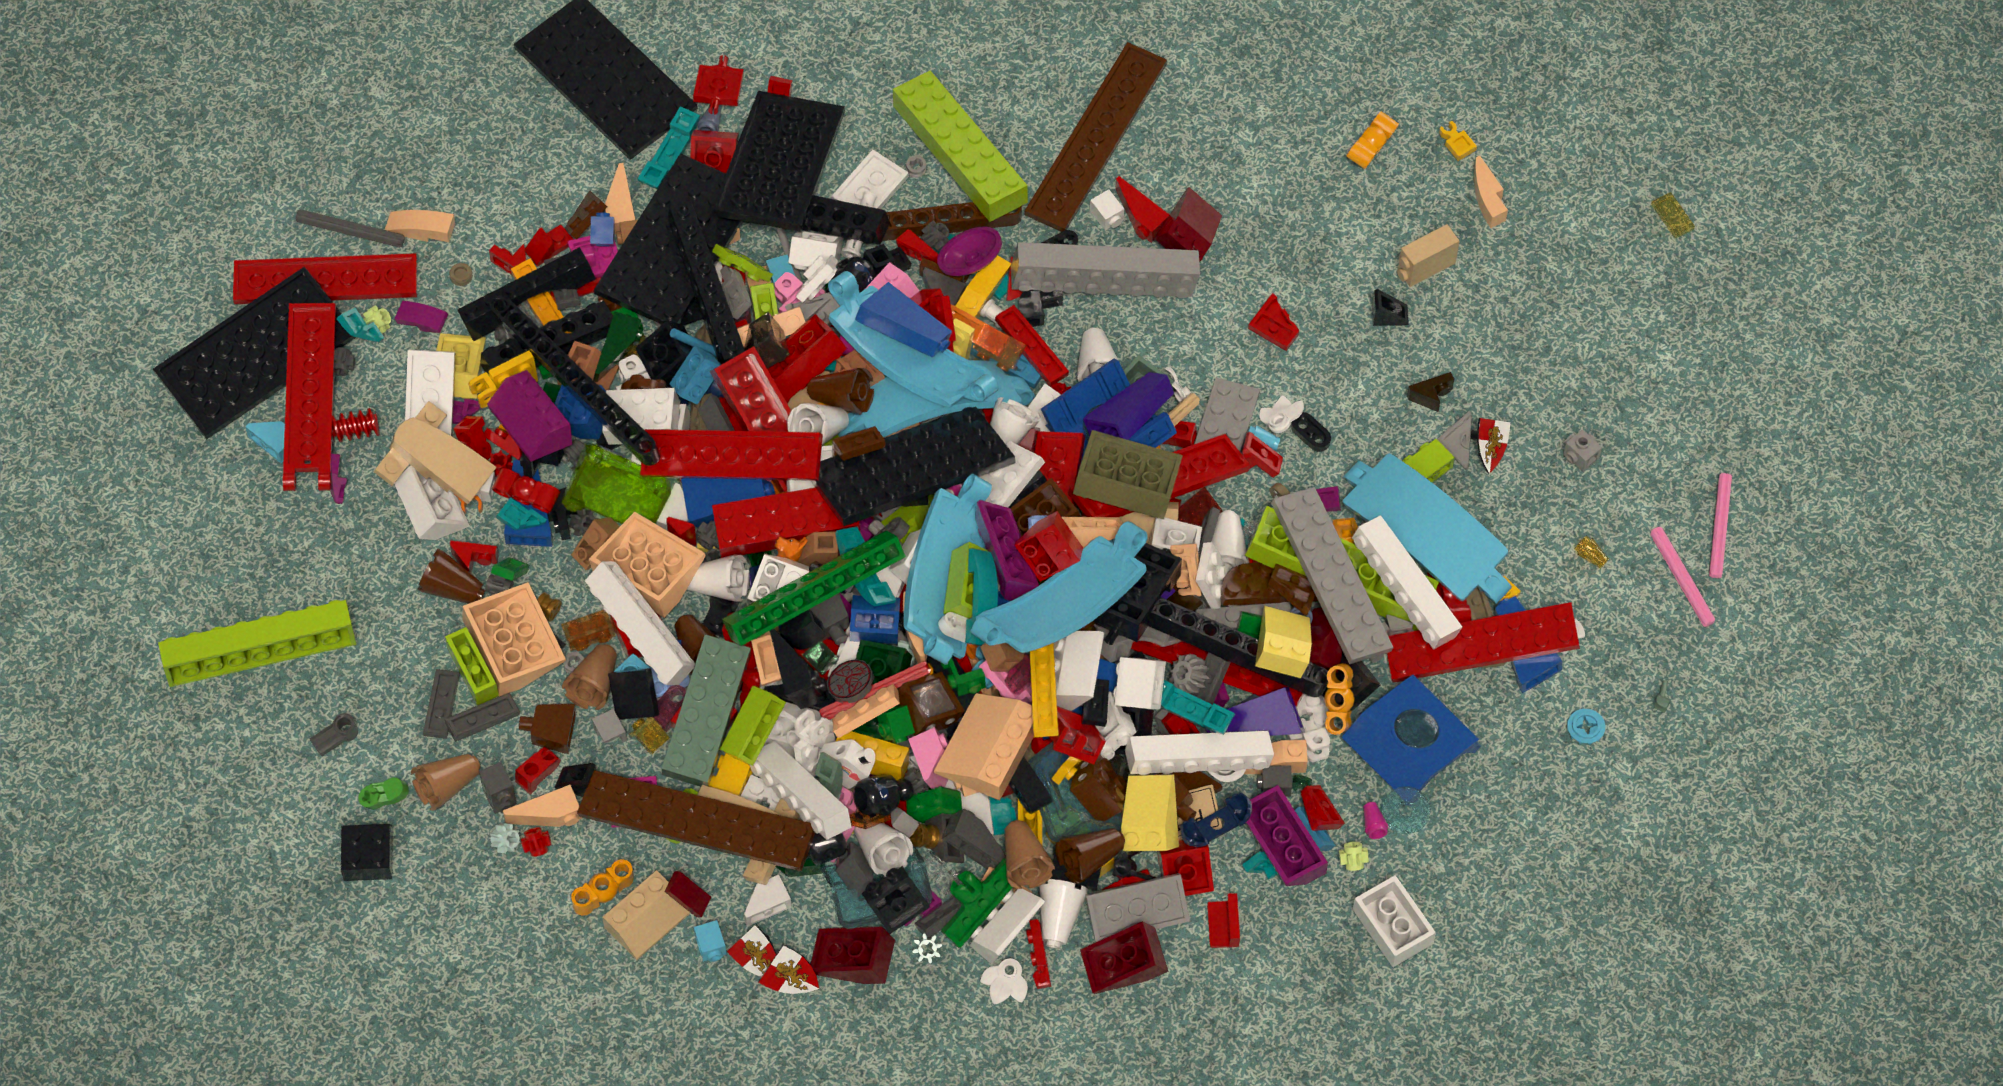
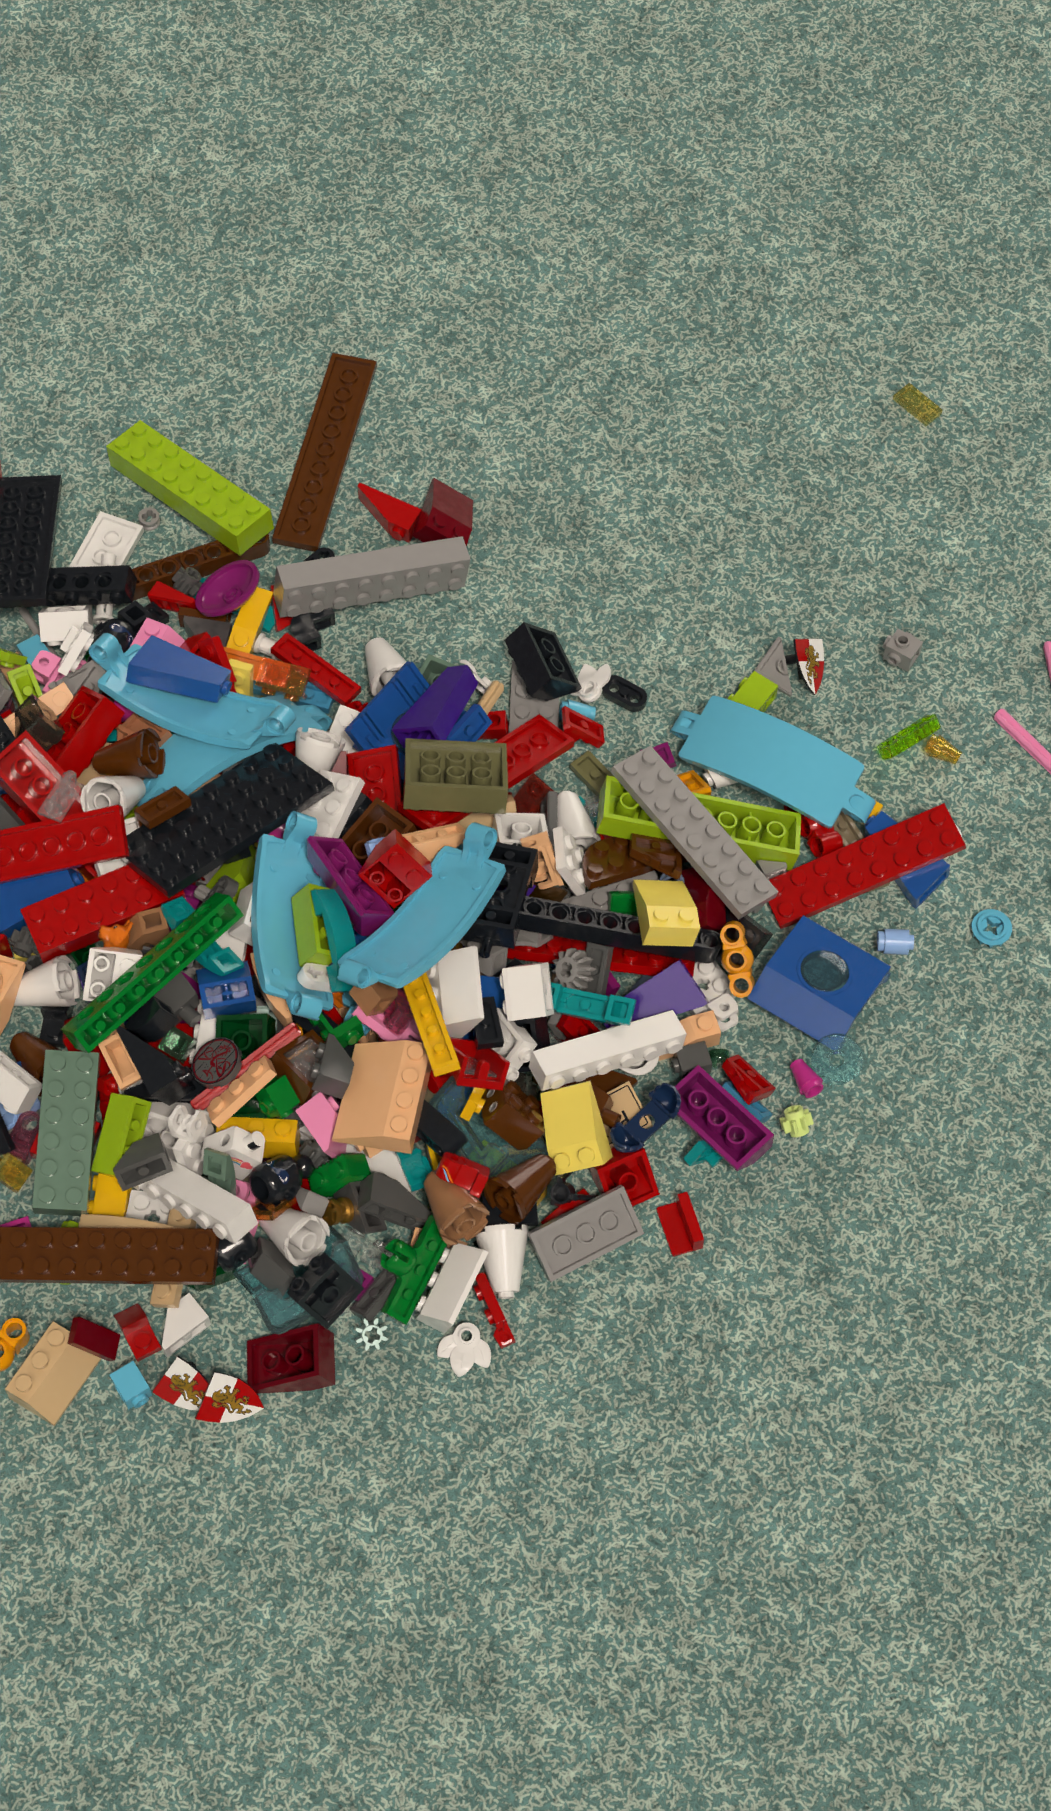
camera: 15 degrees left, 0 degrees up
(727, 898) = (138, 1332): none -> red slope
(765, 752) = (142, 1162): none -> dark grey slope
(771, 413) = (61, 797): none -> clear hinge
(949, 711) = (333, 1069): none -> dark grey slope
(1040, 827) = (463, 1173): none -> red leg
(1107, 210) = (356, 519): white brick -> none
(1124, 958) = (586, 1292): dark red slope -> none
(1241, 386) = (541, 662): none -> black slope
(1258, 496) = (590, 771): none -> olive plate
(1274, 324) = (557, 595): red wing -> none
(1278, 490) = (610, 759): dark tan tile -> none
(1372, 140) = (603, 394): light orange piece -> none
(1388, 310) = (666, 556): black slope -> none
(1394, 921) = (859, 1180): white brick -> none
(1406, 582) = (771, 821): white brick -> none
(1427, 391) = (731, 627): dark brown slope -> none
(1428, 255) = (692, 493): tan brick -> none
(1457, 143) = (687, 380): yellow plate -> none
(1489, 194) = (732, 421): light nougat slope -> none
(1492, 718) = (895, 941): none -> light blue brick
(1564, 533) = (908, 736): none -> clear neon green beam

